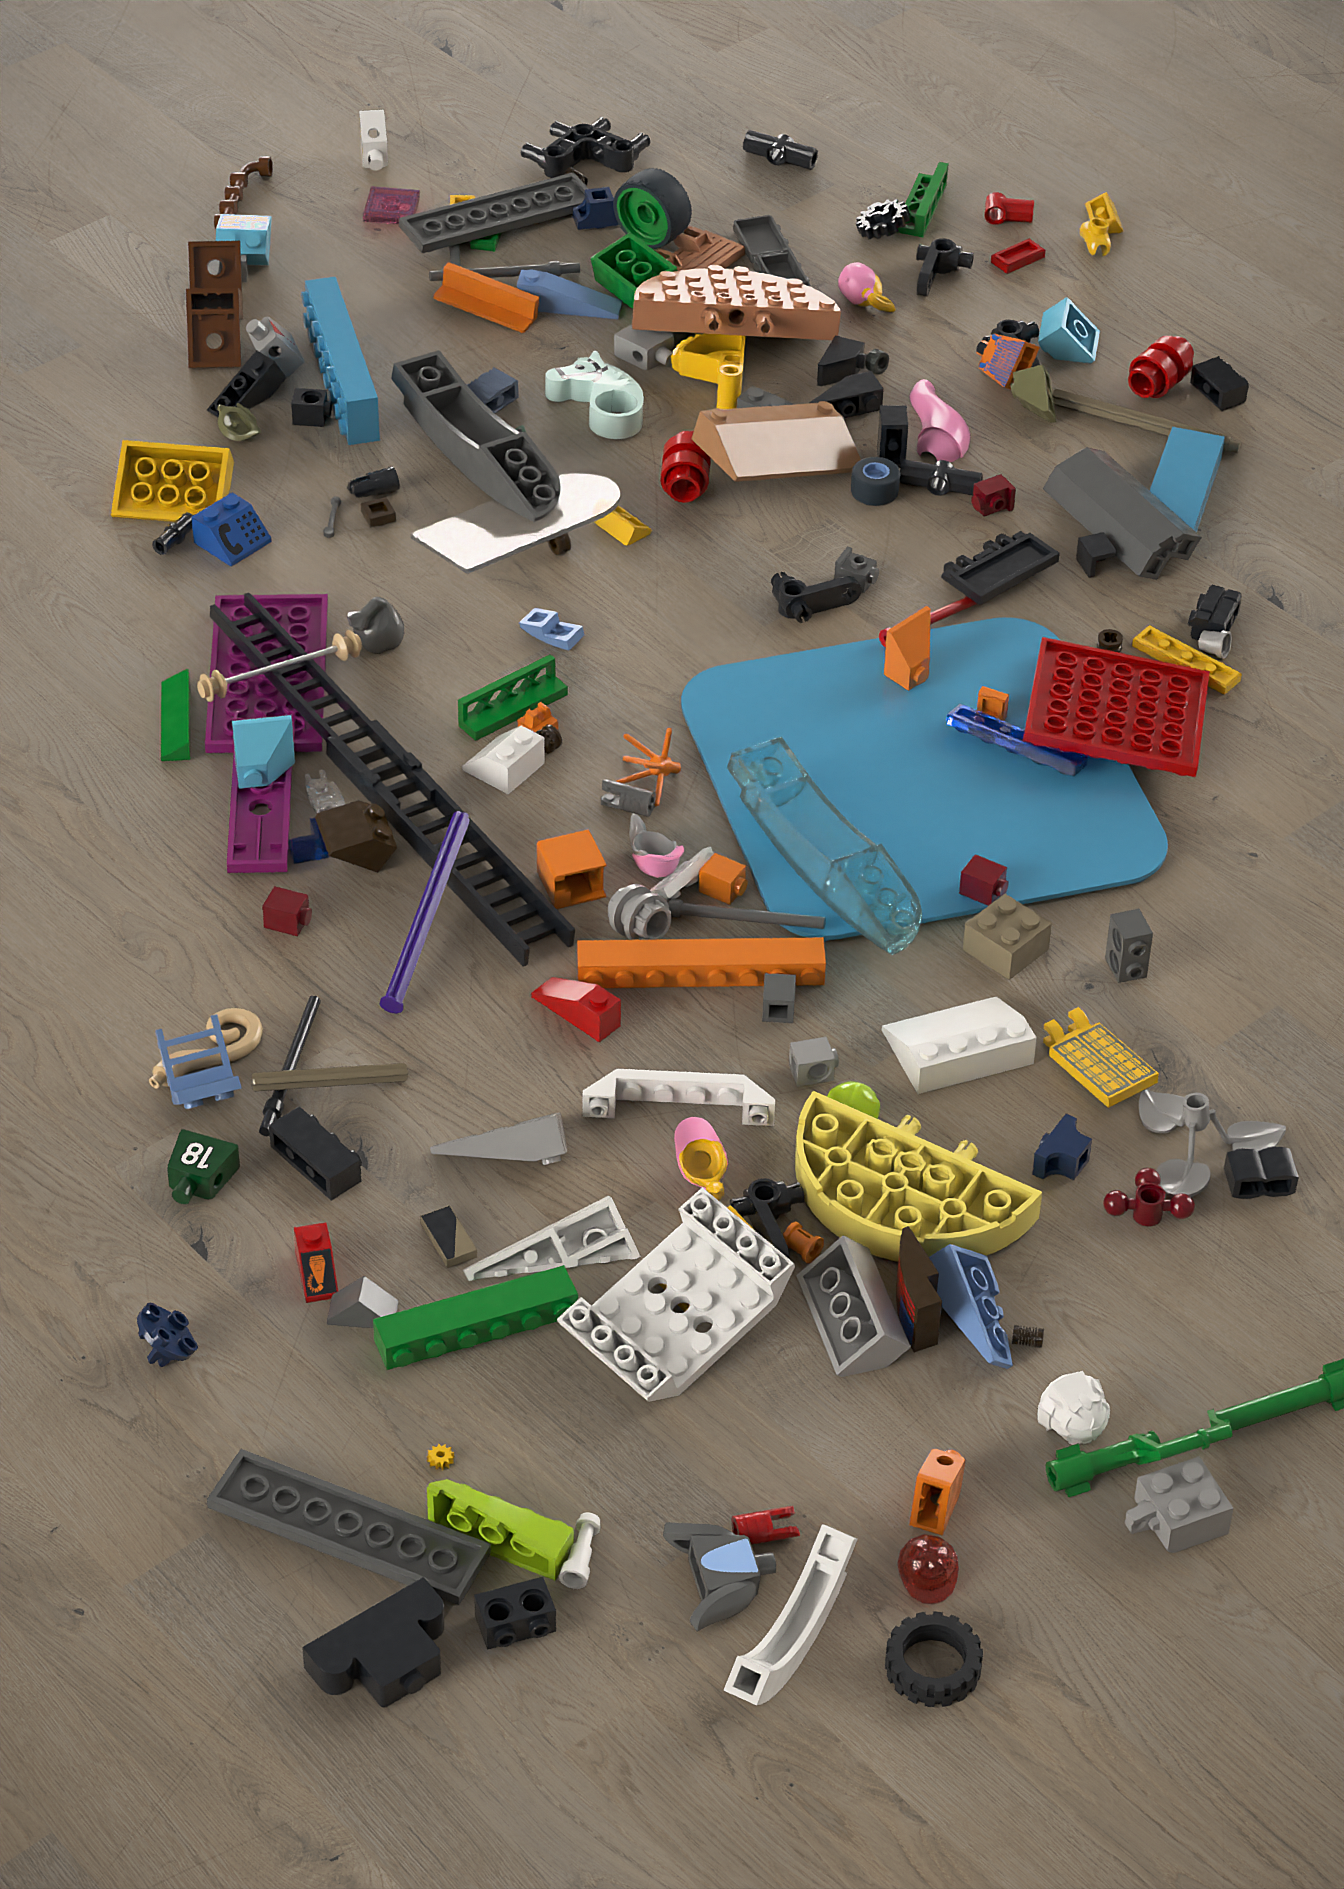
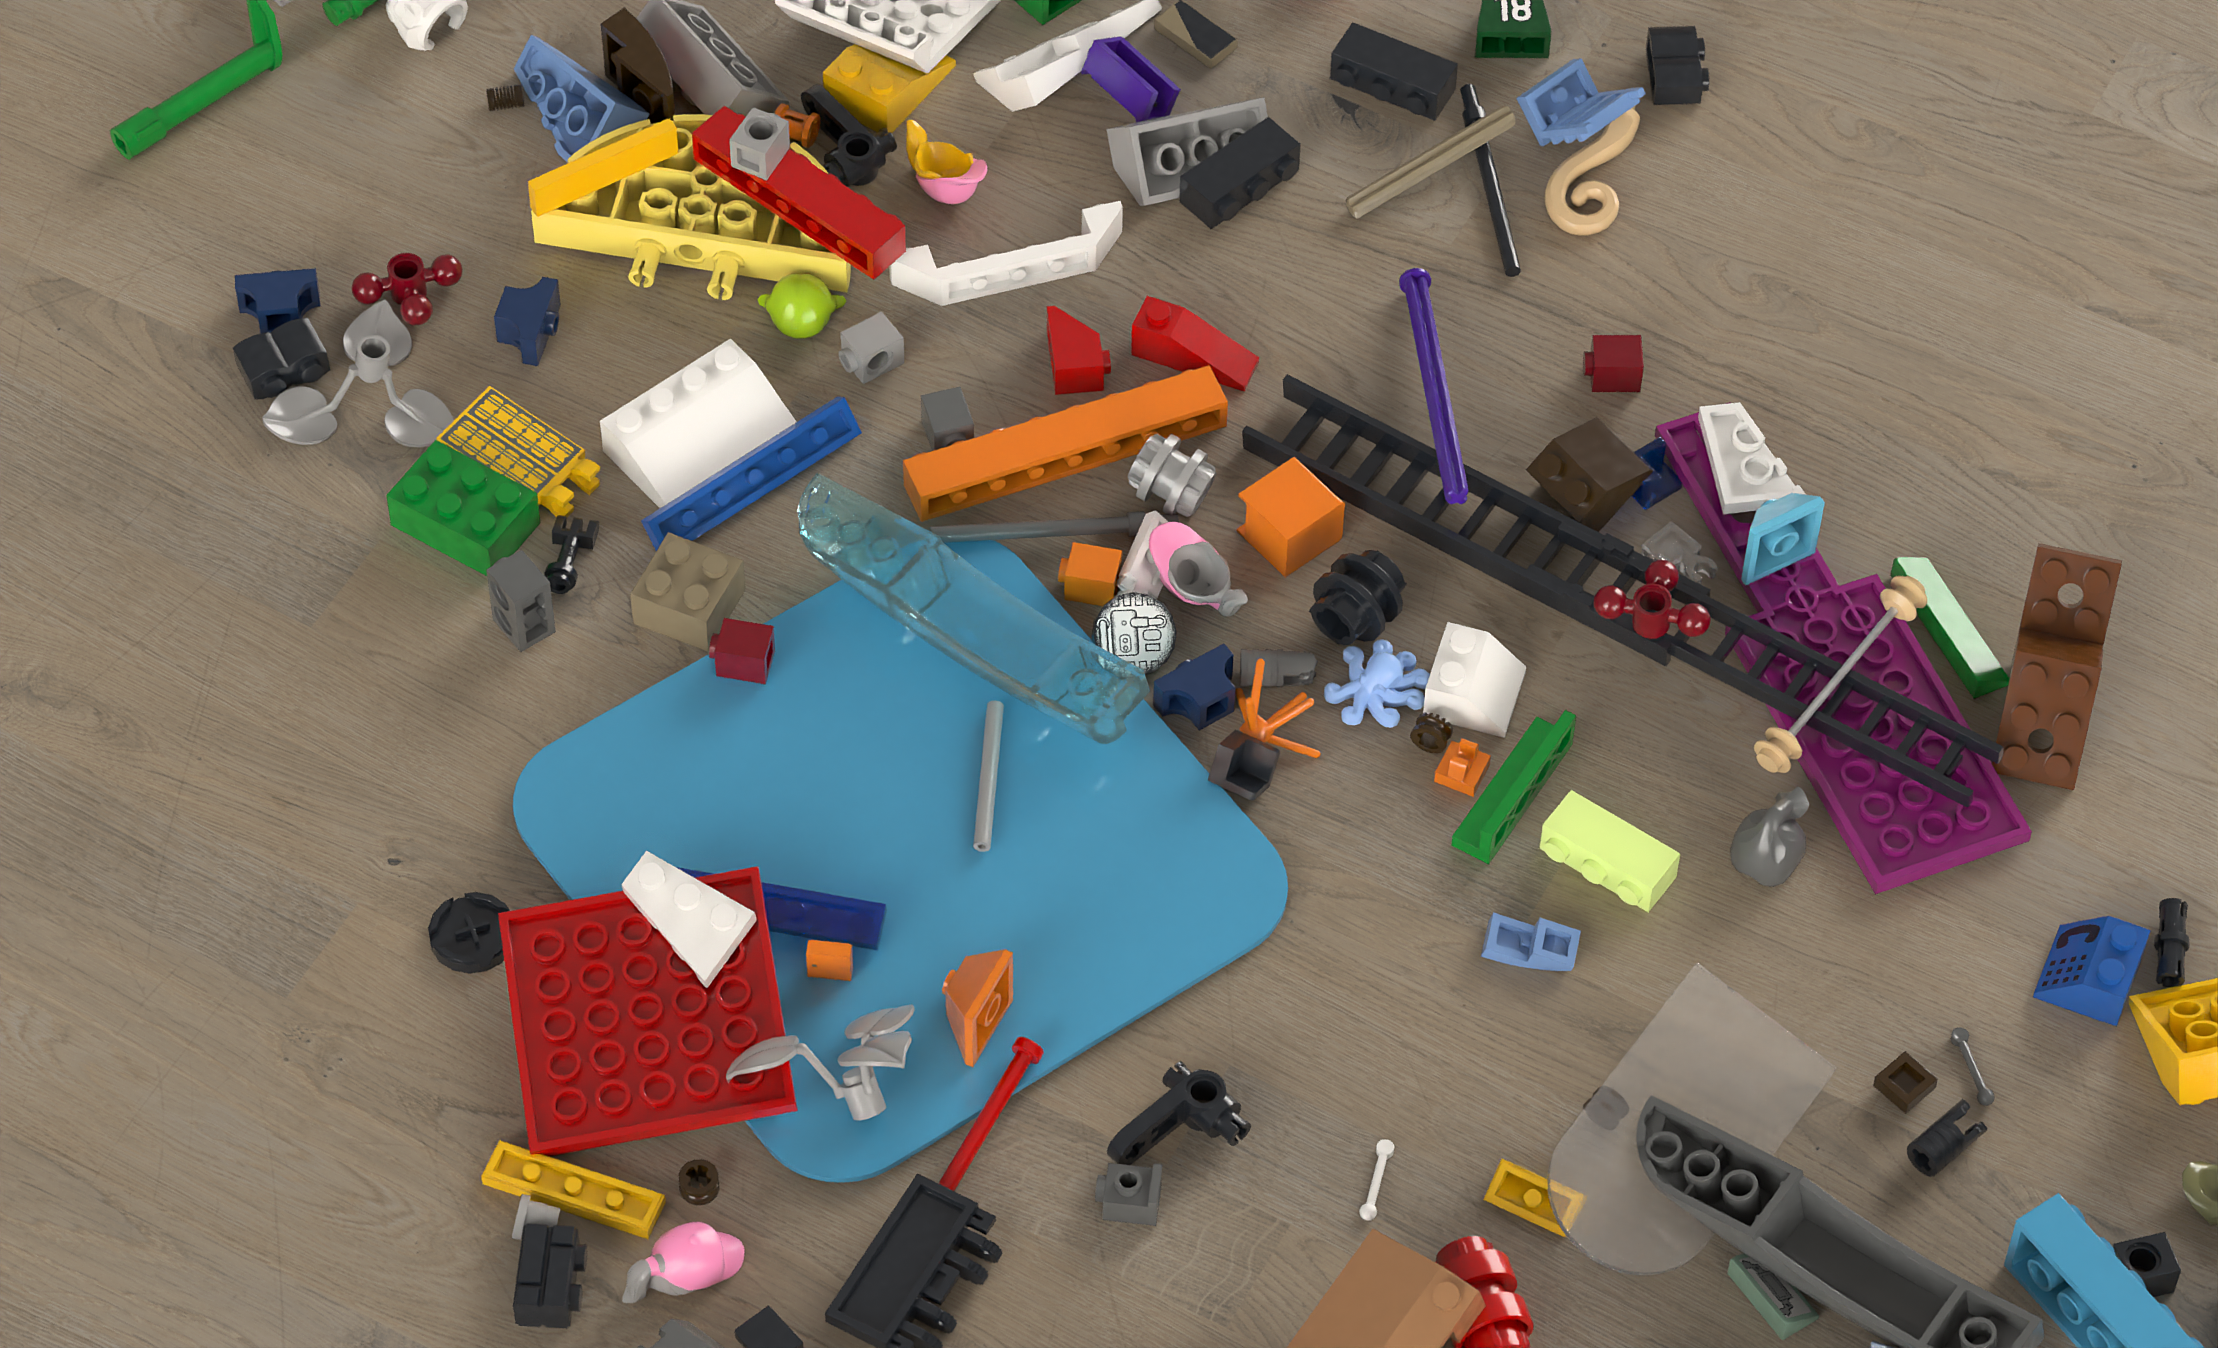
camera: 160 degrees right, 10 degrees up
(98, 1099) = (1675, 65): none -> black brick
(141, 644) = (2056, 665): none -> reddish brown bracket
(249, 812) = (1741, 461): none -> white wing
(377, 721) = (1660, 579): none -> dark red piece
(475, 650) = (1609, 851): none -> yellowish green brick
(476, 1109) = (1240, 173): none -> black brick
(525, 1195) = (1130, 78): none -> dark purple window
(556, 804) = (1357, 597): none -> black piece
(565, 776) = (1379, 684): none -> light blue animal
(666, 1017) = (1075, 354): none -> red slope
(683, 748) = (1244, 765): none -> black panel
(685, 798) = (1198, 688): none -> dark blue brick
(696, 564) = (1384, 1150): none -> white hinge
(713, 833) = (1136, 630): none -> tile
(833, 1131) = (807, 199): none -> red brick
(852, 774) = (988, 776): none -> light grey piece
(856, 1131) = (759, 143): none -> light grey brick
(922, 1004) = (755, 473): none -> blue plate
(974, 660) = (859, 1083): none -> light grey plant
(977, 1188) = (603, 167): none -> yellow tile
(1078, 720) = (689, 914): none -> white wing
(1093, 976) = (561, 573): none -> black hinge
(1132, 597) = (685, 1261): none -> bright pink hair
(1153, 1027) = (463, 508): none -> green brick
(1212, 798) = (468, 933): none -> black tile
(1254, 1217) = (277, 296): none -> dark blue brick

